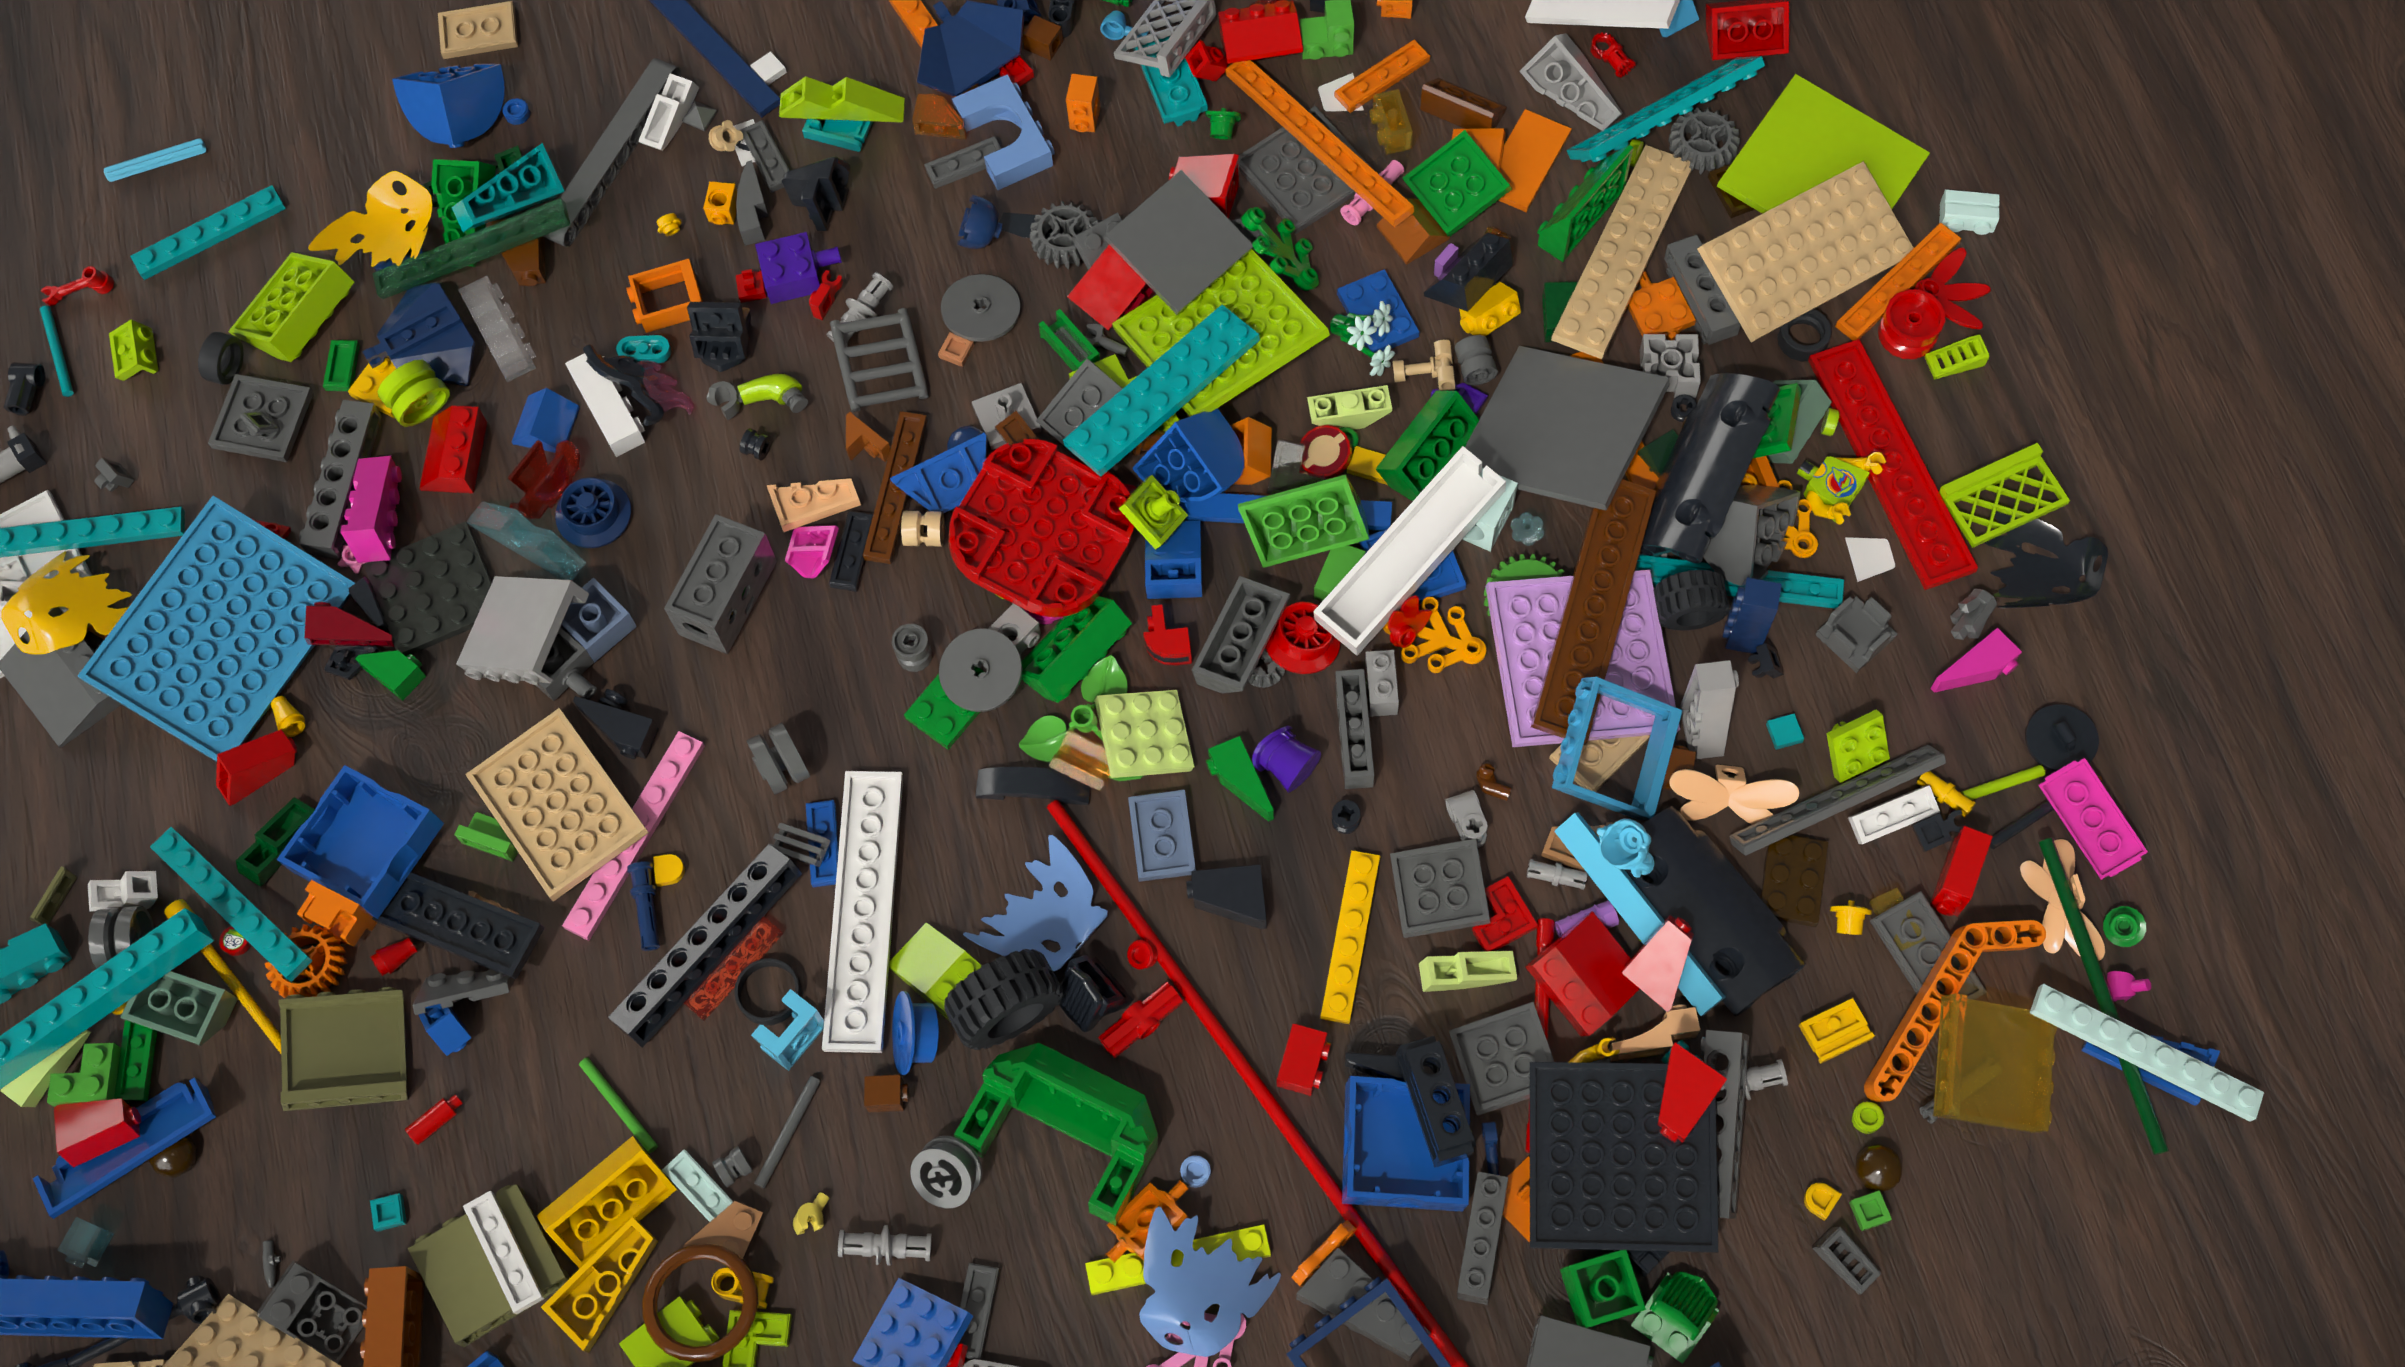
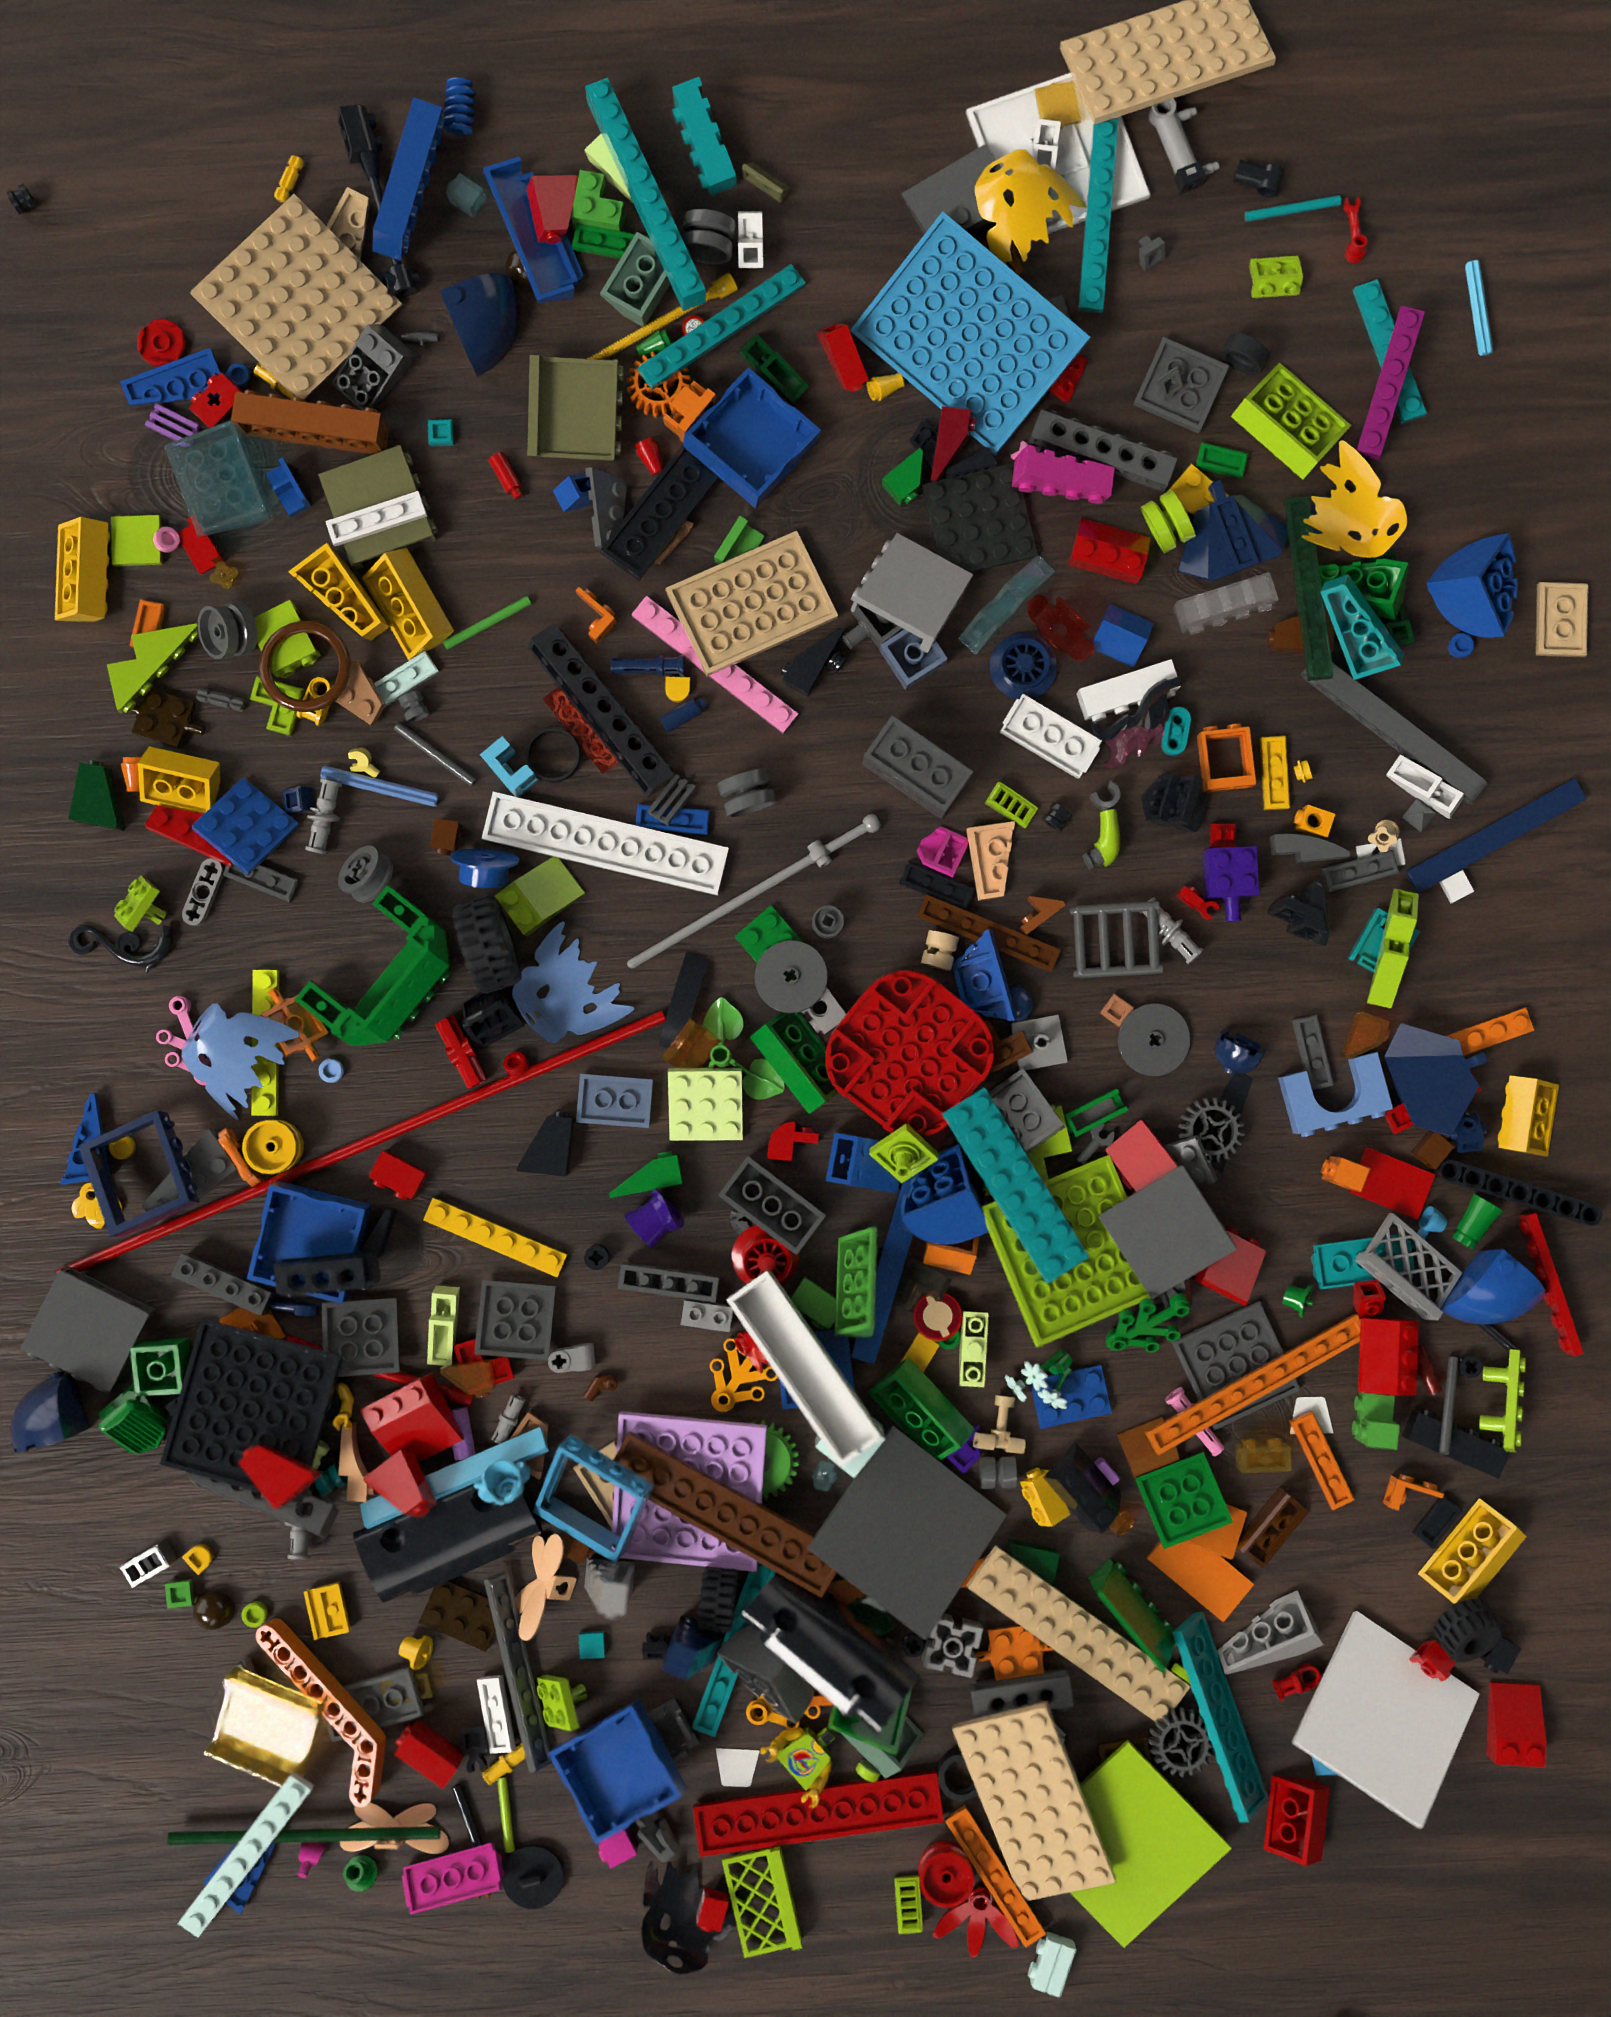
camera: 95 degrees right, 20 degrees up
(241, 216) = (1390, 383): none -> magenta brick
(242, 1185) = (484, 316): none -> dark blue brick
(254, 975) = (655, 343): none -> green cone
(587, 967) = (602, 626): none -> orange bracket
(666, 468) = (1050, 736): none -> white brick
(691, 247) = (1274, 773): none -> yellow tile
(698, 856) = (682, 714): none -> dark blue cylinder
(748, 513) = (1000, 787): none -> lime slope
(837, 677) = (818, 854): none -> light grey bar
(837, 1188) = (380, 786): none -> medium blue axle
(870, 1287) = (298, 799): none -> dark blue slope
(1085, 56) = (1394, 1183): none -> red tile
(1283, 1210) = (266, 1159): none -> yellow wheel
(1515, 914) = (472, 1377): none -> clear orange slope
(1910, 658) = (618, 1771): none -> blue tile
(2030, 543) = (712, 1910): none -> red brick

